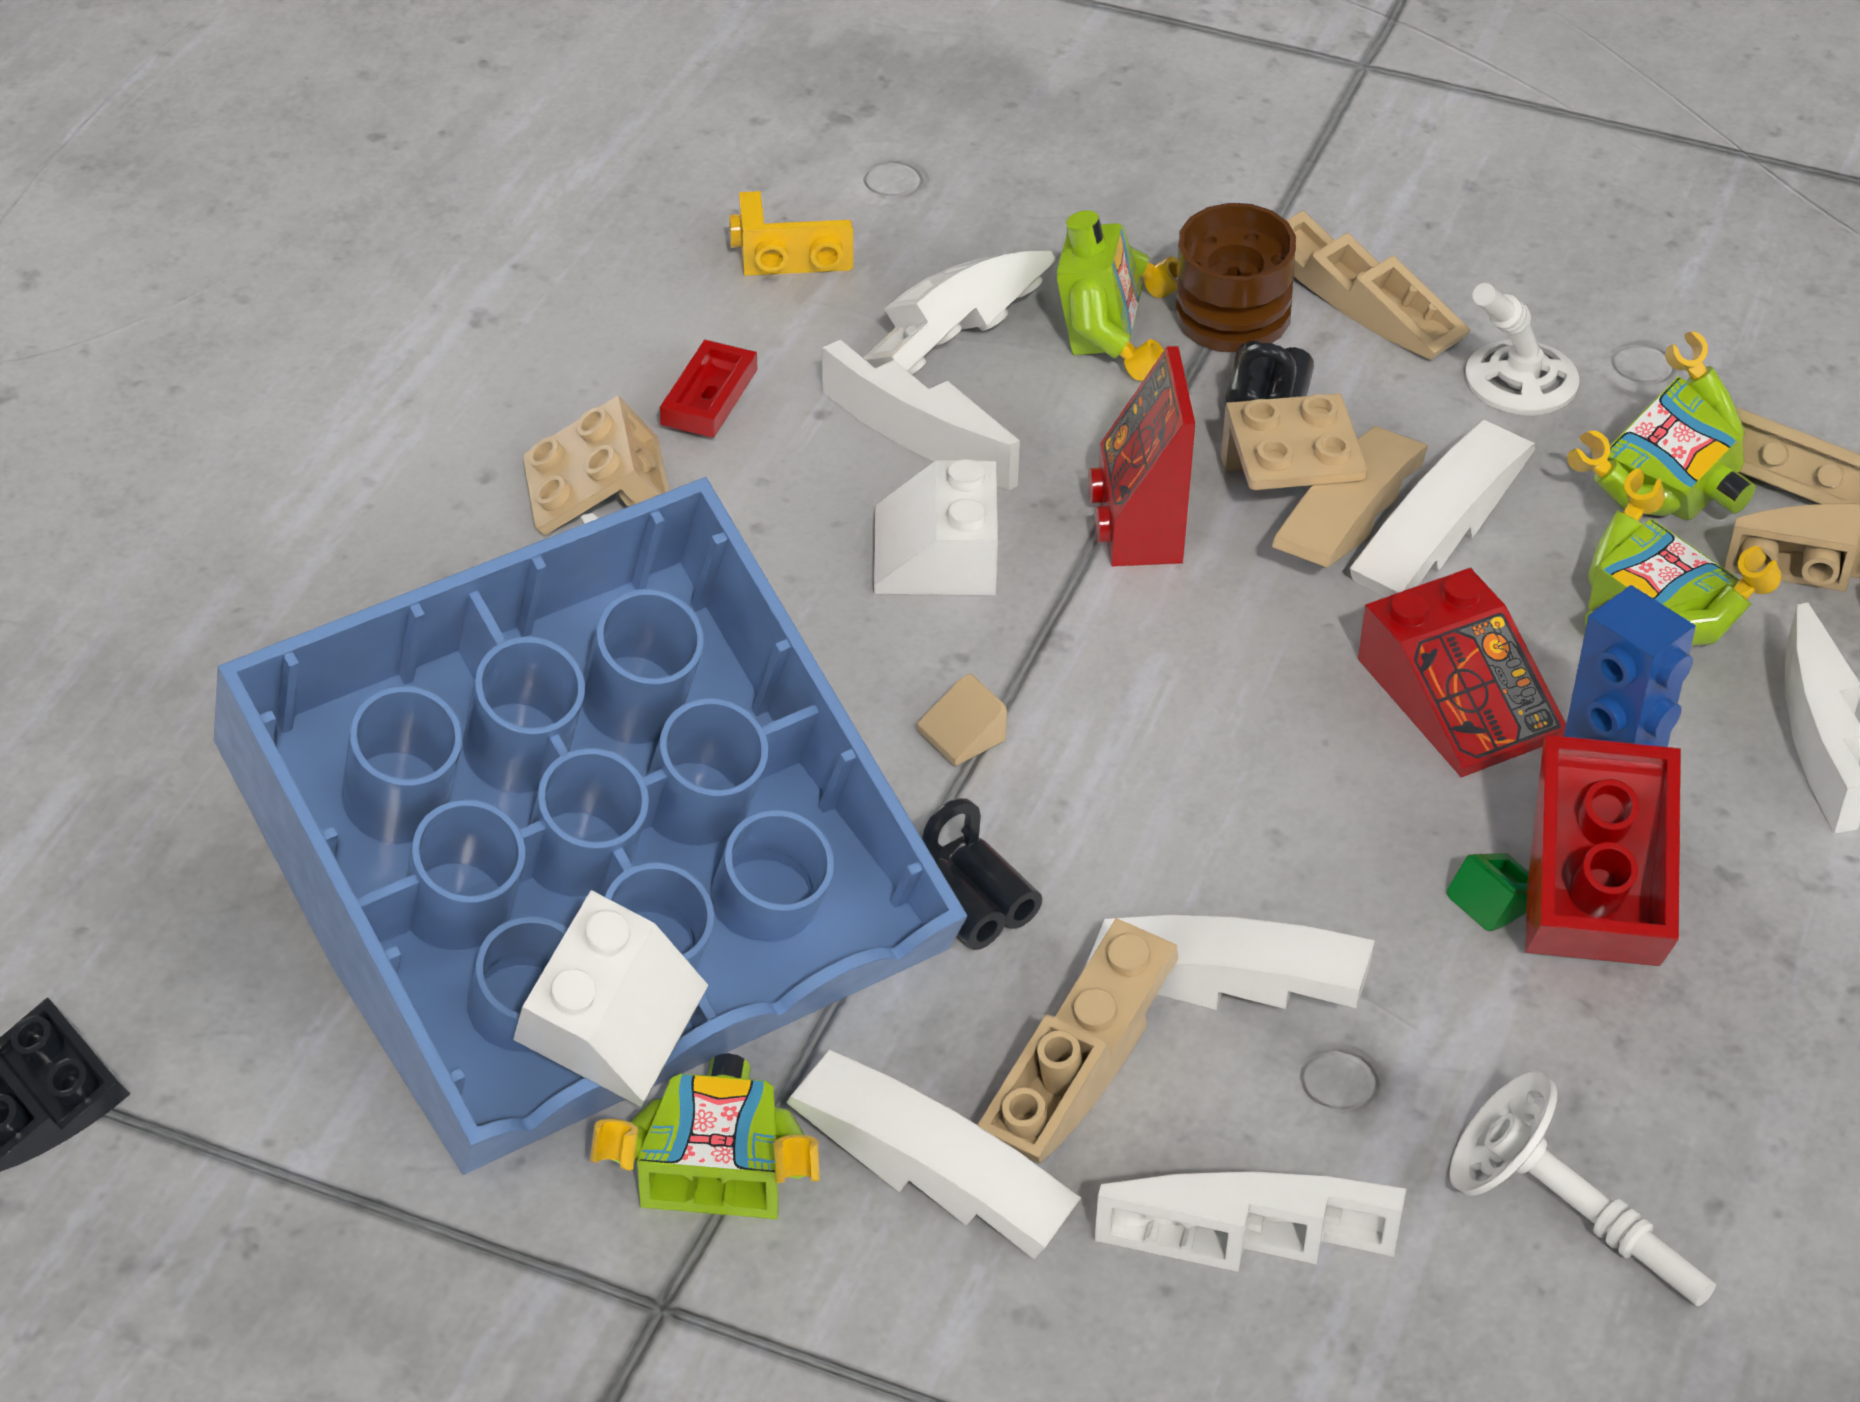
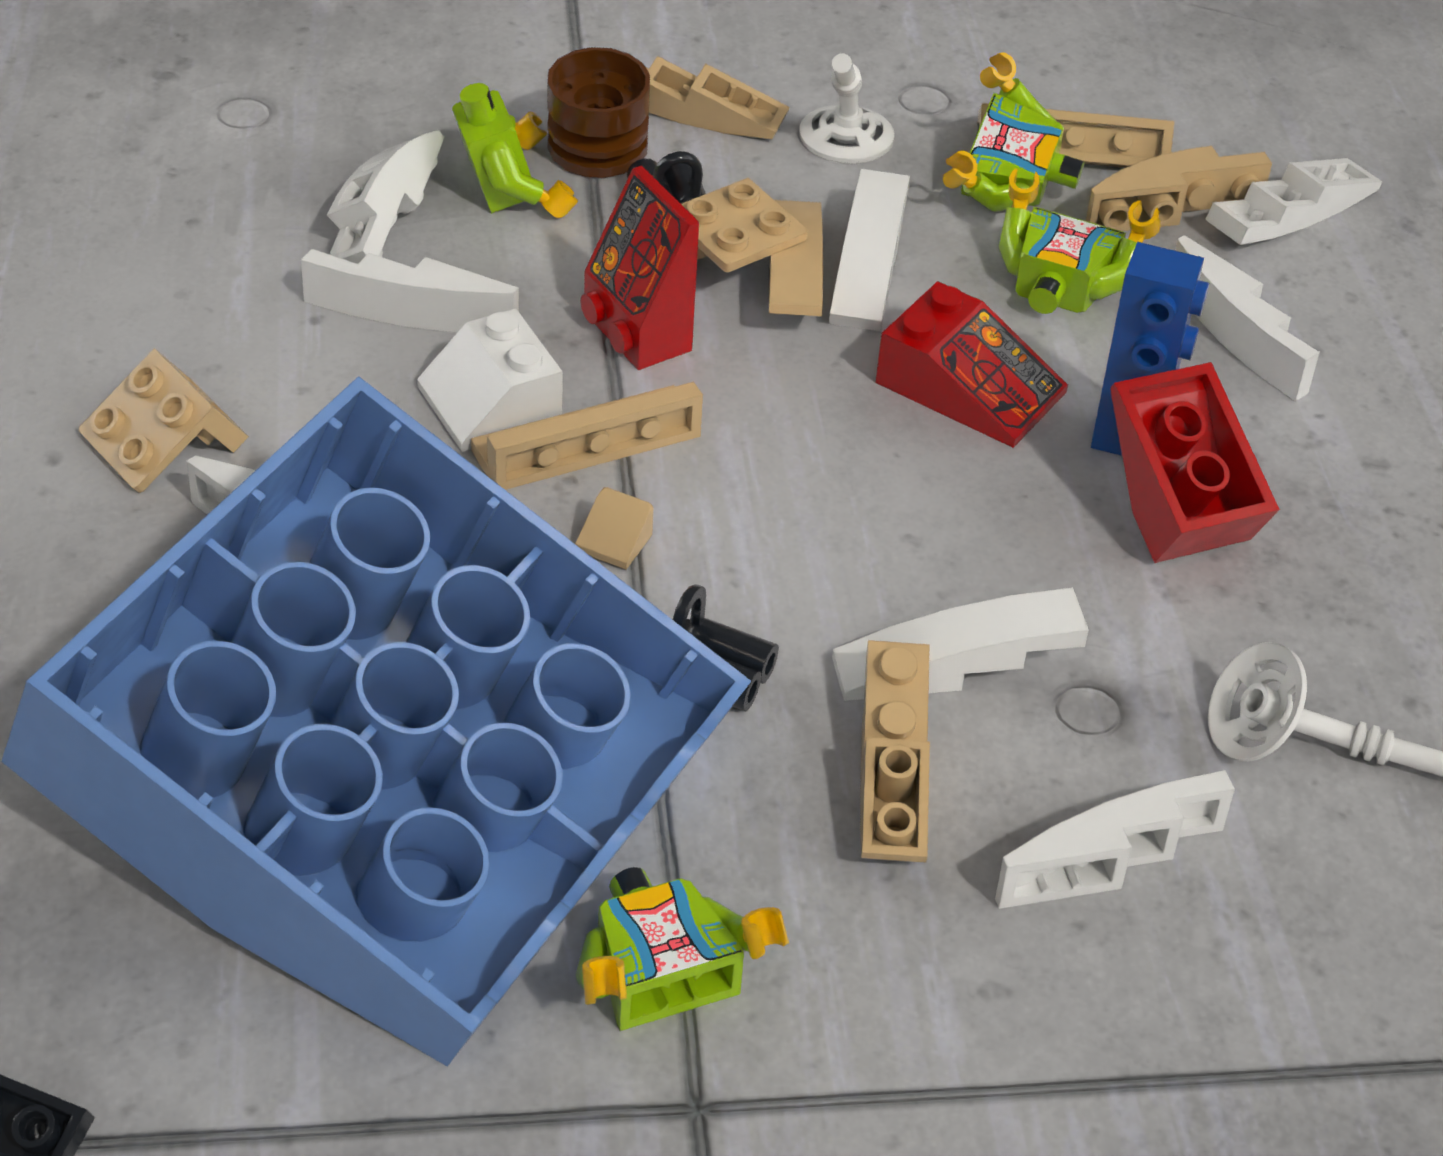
camera: 30 degrees left, 0 degrees up
(611, 1000) = (525, 856): white slope -> none
(708, 388) = (208, 311): red piece -> none
(788, 245) = (197, 189): yellow bracket -> none
(935, 1148) = (841, 881): white slope -> none
(1005, 619) = (590, 436): none -> tan fence
(1490, 889) = (1100, 524): green slope -> none

